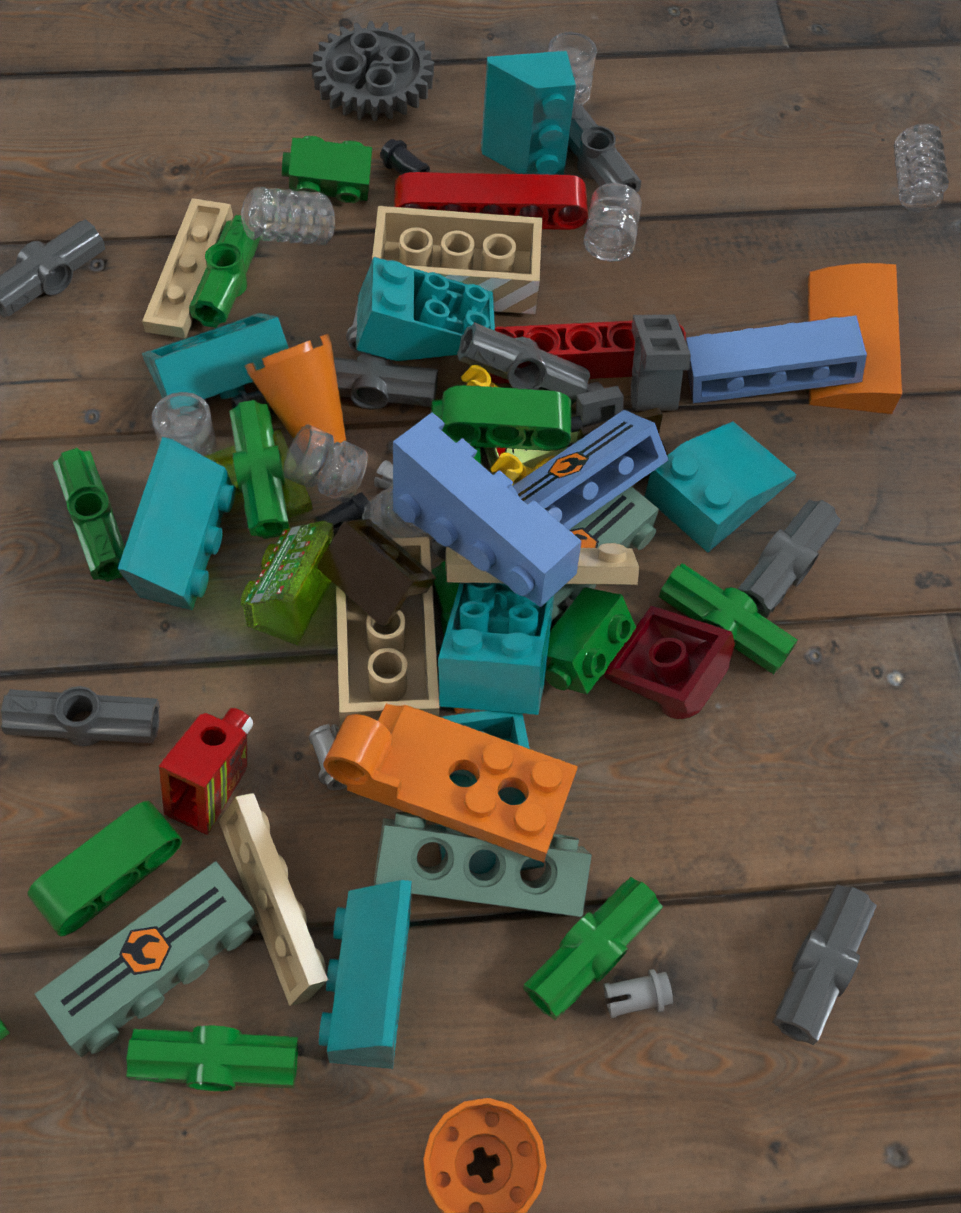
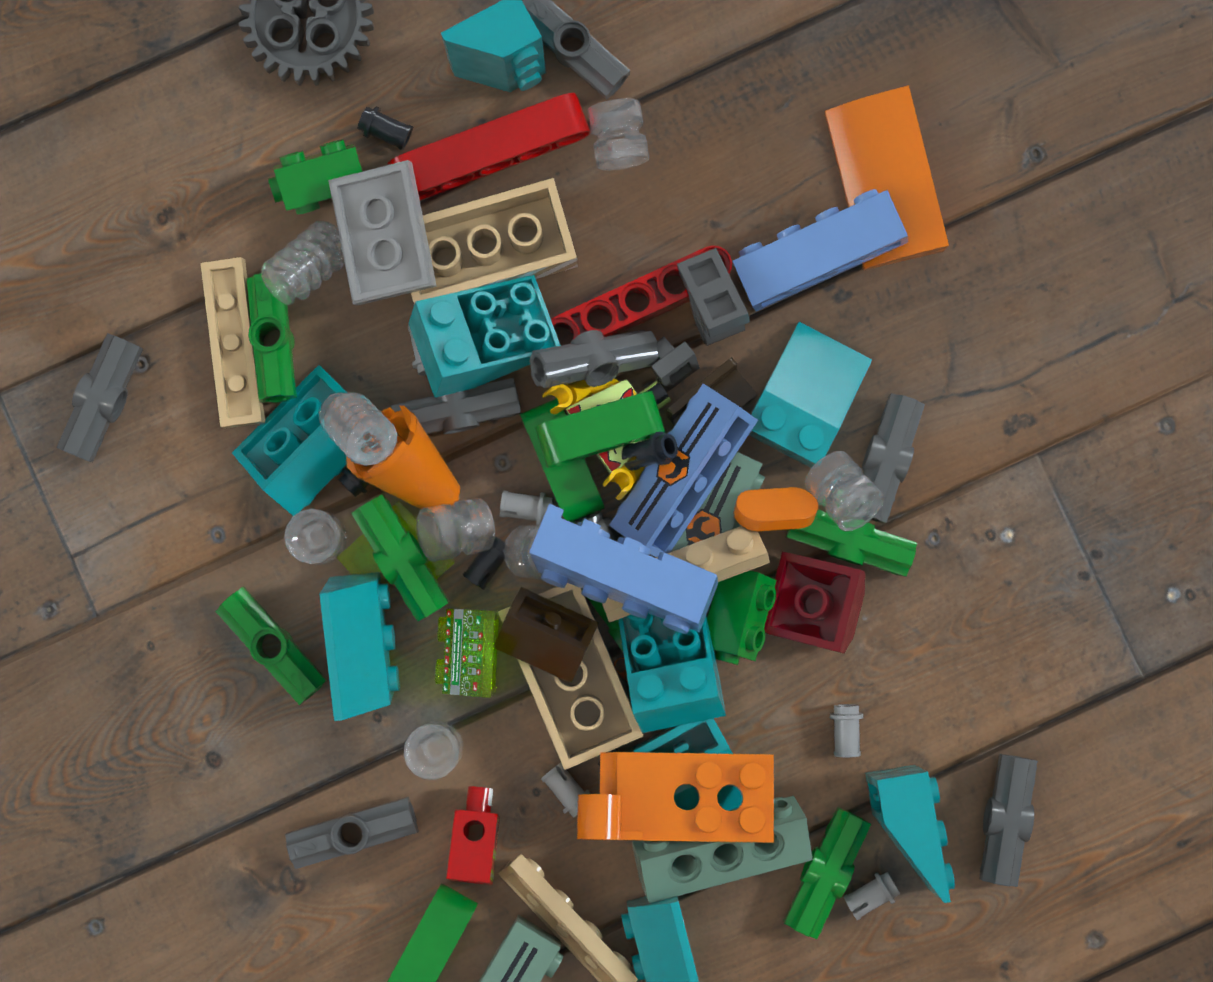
camera: 15 degrees left, 25 degrees up
(208, 660) = (433, 750): none -> clear wheel
(278, 307) = (358, 428): none -> clear piece
(367, 207) = (382, 233): none -> light grey tile
(558, 443) = (658, 449): none -> black pin
(659, 546) = (775, 509): none -> orange tile
(664, 803) = (846, 730): none -> light grey pin
(710, 914) = (904, 807): none -> teal slope
(736, 554) = (844, 491): none -> clear wheel

